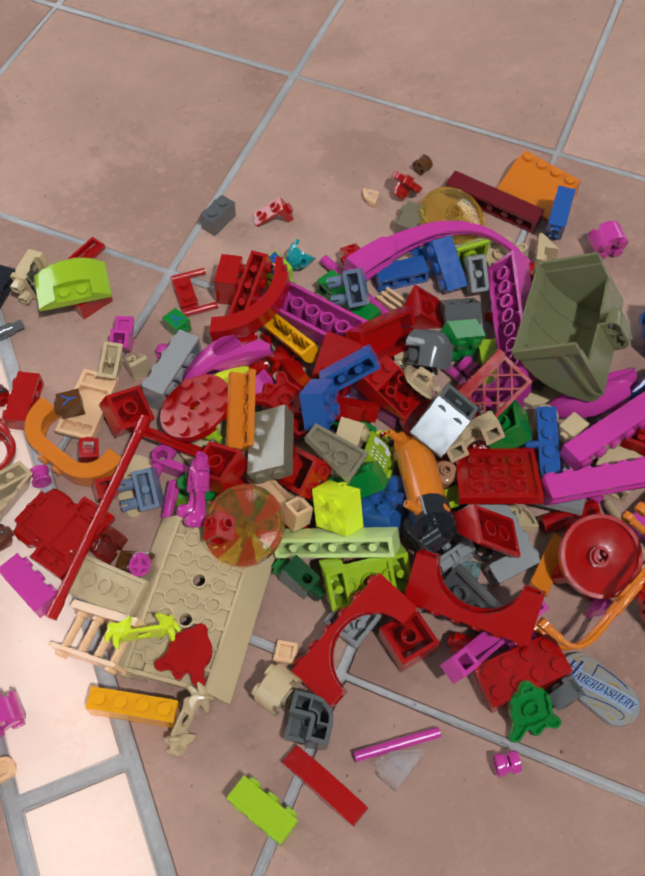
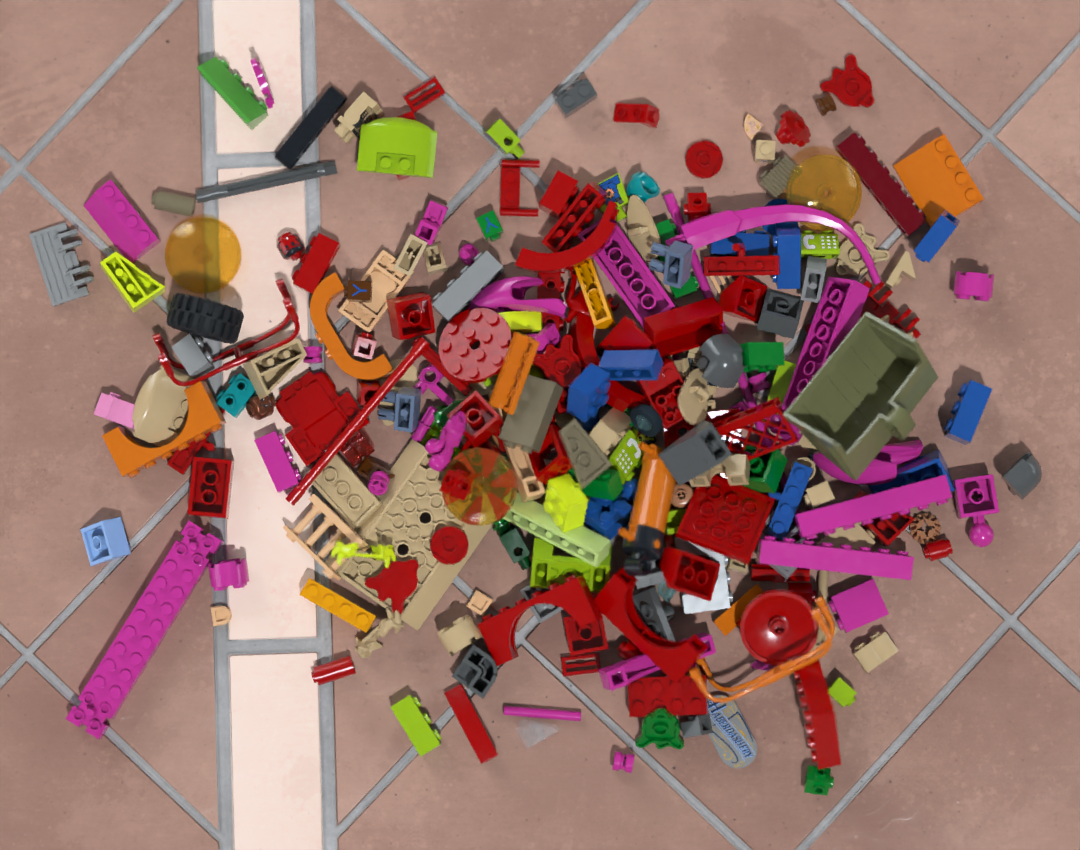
camera: 25 degrees right, 25 degrees up
(148, 783) = (333, 670): none -> red brick
(165, 256) = (498, 132): none -> lime torso
(233, 597) = (449, 545): none -> red tile
(312, 279) = (641, 228): none -> tan shield
(342, 229) = (704, 159): none -> red tile
(382, 417) = (646, 420): none -> black wheel
(389, 205) = (764, 151): none -> tan brick
(400, 685) = (564, 665): none -> red tile
(410, 277) = (741, 264): none -> red plate
(437, 149) = (850, 86): none -> red tile

